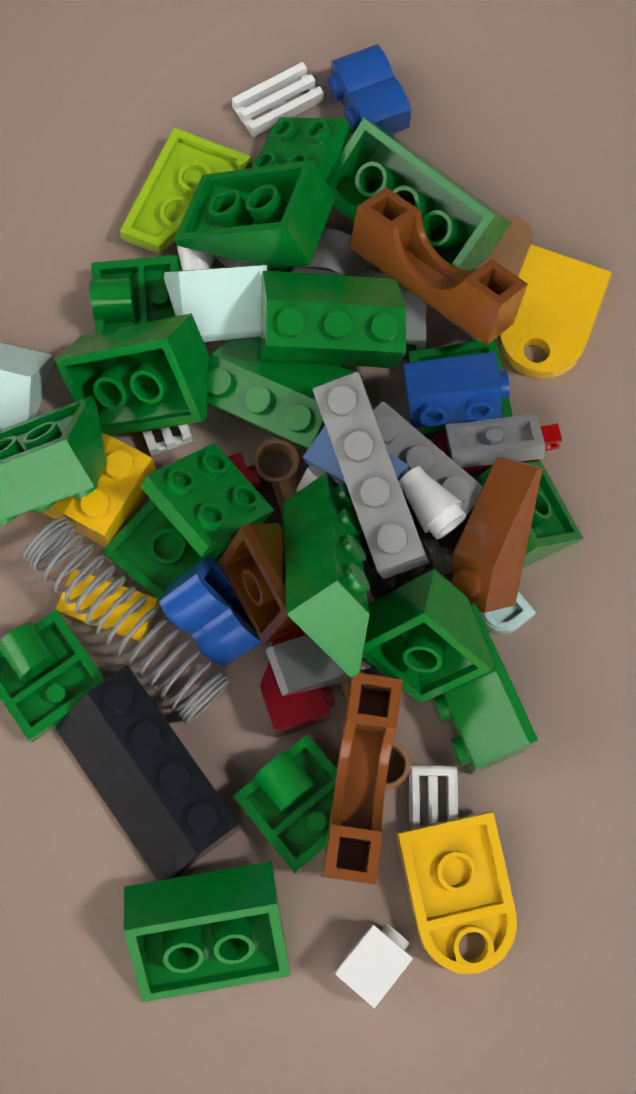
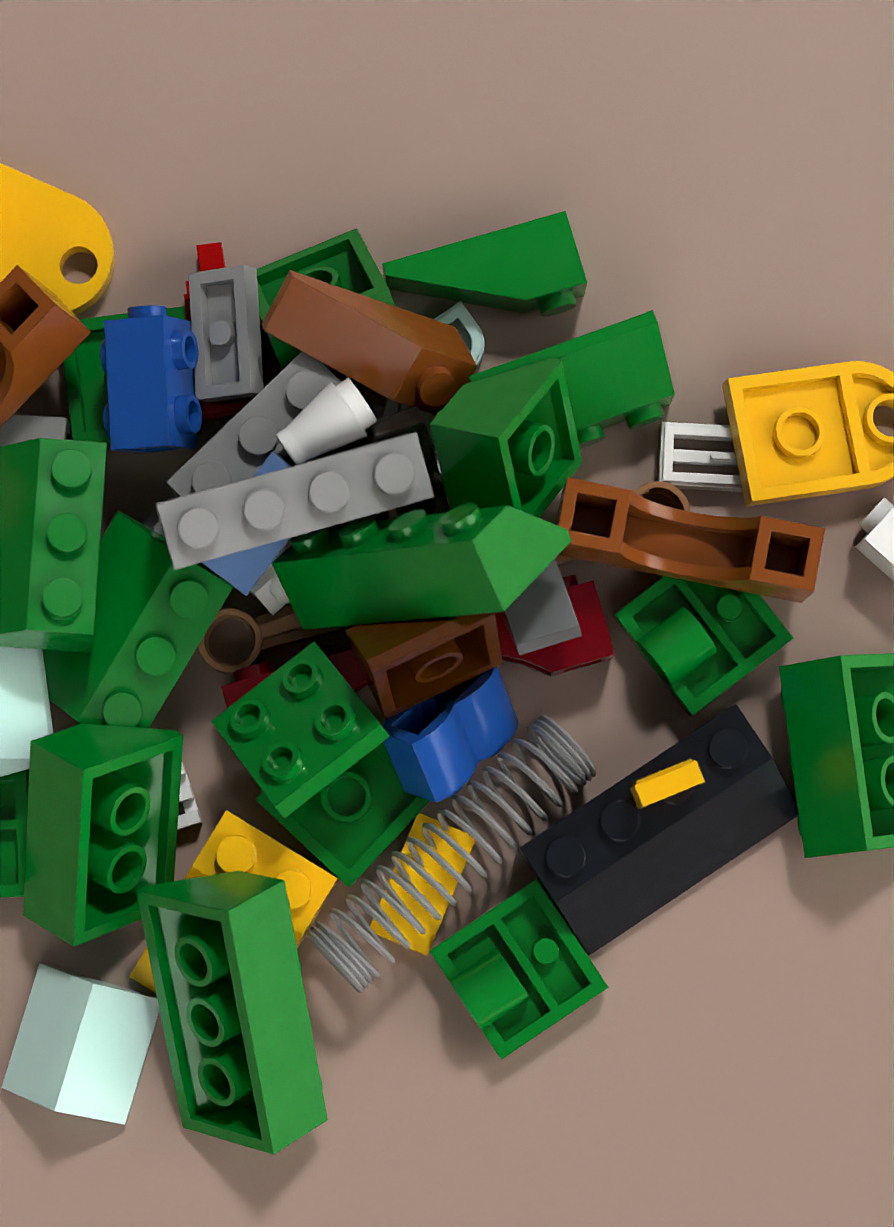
camera: 90 degrees left, 10 degrees up
(170, 765) = (666, 783): none -> yellow tile
(564, 647) = (505, 269): none -> green slope

